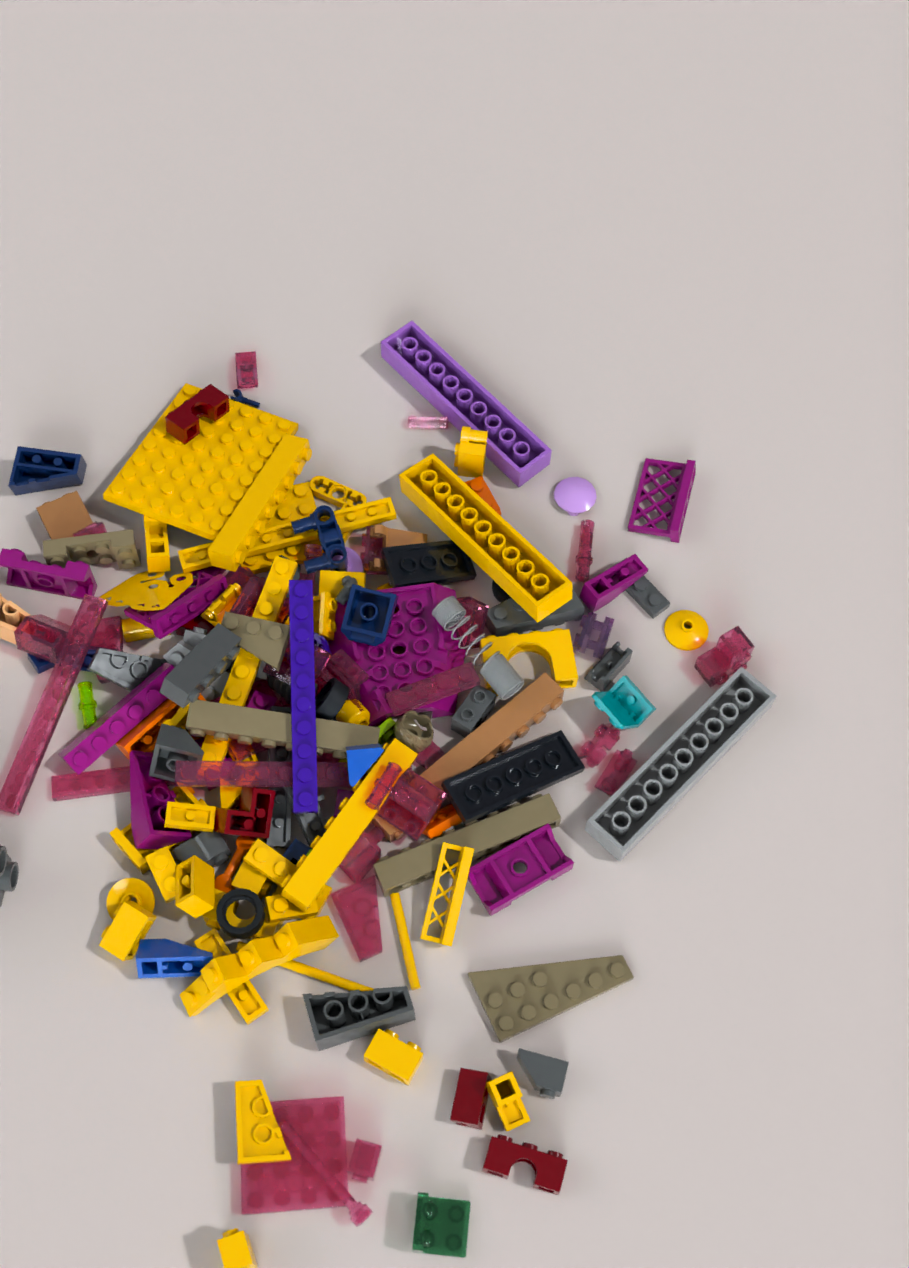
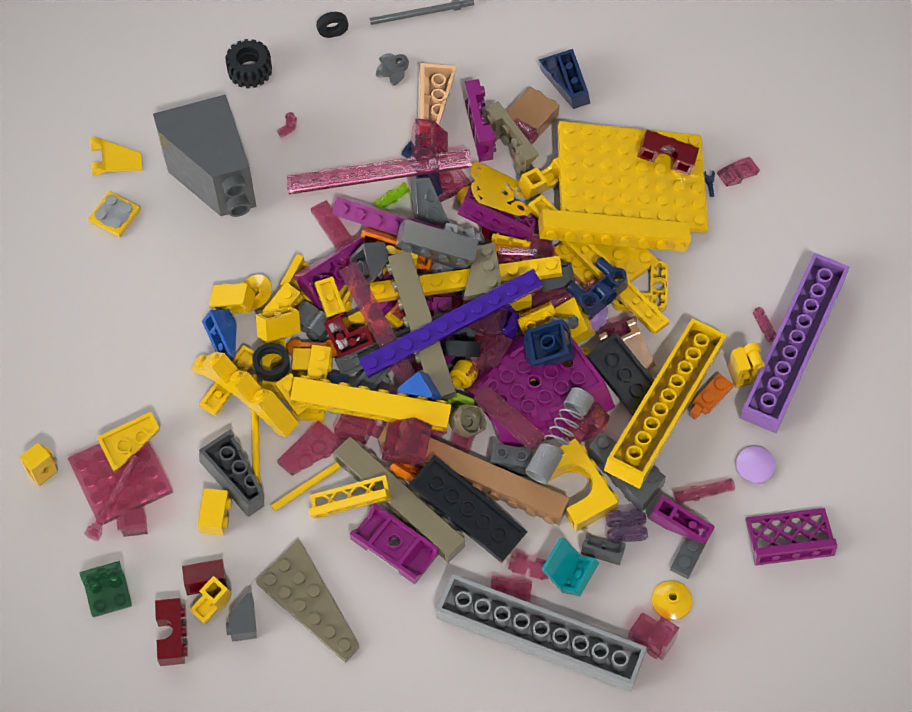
camera: 70 degrees right, 0 degrees up
(383, 786) = (405, 410): clear pink pin -> none

